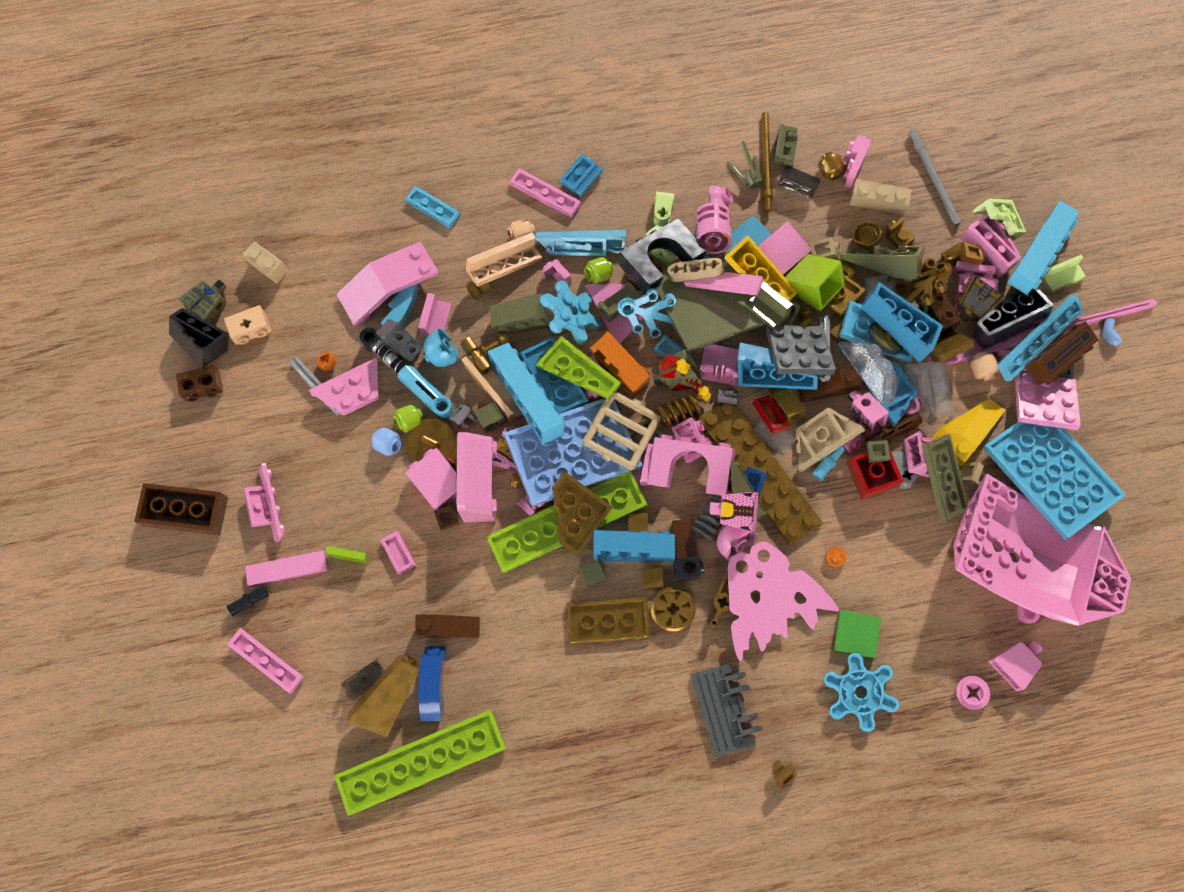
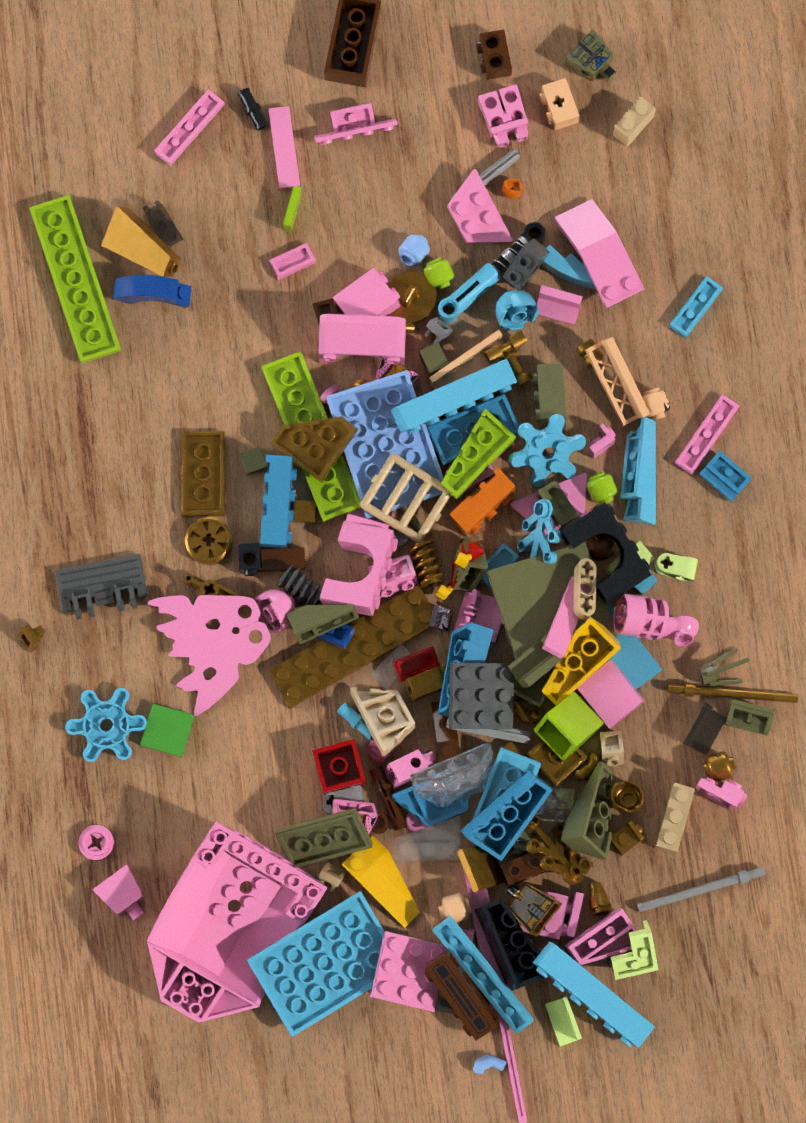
camera: 90 degrees right, 5 degrees up
(197, 337) = (545, 51): black wedge -> none
(257, 371) = (506, 120): none -> bright pink hips
(446, 626) = (209, 308): reddish brown slope -> none
(653, 578) = (244, 523): pearl gold tile -> none
(737, 510) = (299, 607): torso -> none
(835, 557) = (251, 718): orange tile -> none
(878, 451) = (358, 767): olive tile -> none
(884, 340) = (486, 791): wheel -> none
(971, 253) = (590, 909): pearl gold tile -> none

